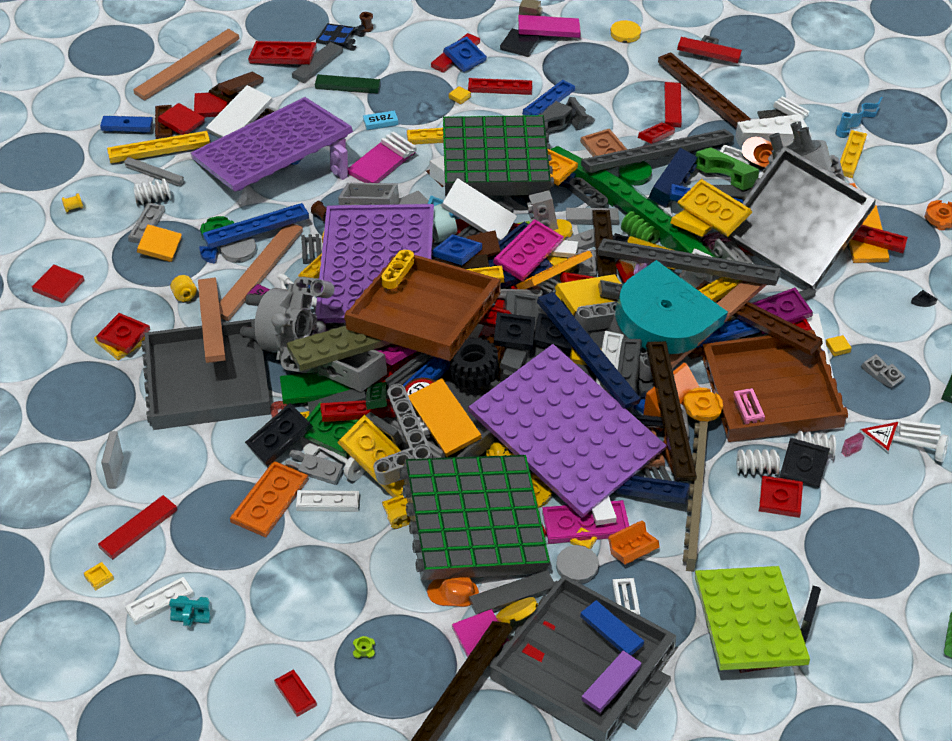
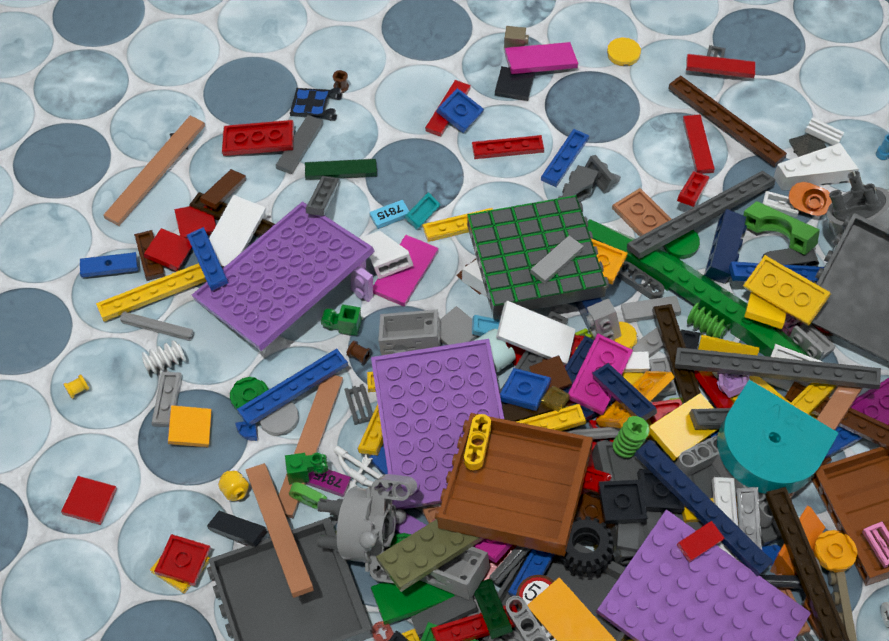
camera: 10 degrees left, 10 degrees up
(176, 316) = (237, 528): none -> black tile
(211, 128) = (207, 259): none -> blue tile
(238, 299) = (305, 494): none -> bright green beam
(243, 278) = (300, 465): none -> green brick
(317, 186) = (347, 321): none -> green brick
(324, 95) = (322, 196): none -> dark grey tile
(367, 144) = (388, 254): none -> white slope
(399, 144) = (423, 247): white tile -> none
(409, 120) = (422, 211): none -> teal tile
(459, 95) = (467, 166): yellow tile -> none
(481, 258) = (555, 398): none -> clear yellow tile
(511, 156) = (556, 259): none -> light grey tile
(535, 285) = (630, 437): none -> bright green piece
(542, 259) = (624, 392): none -> dark blue plate
(576, 370) = (700, 541): none -> red tile

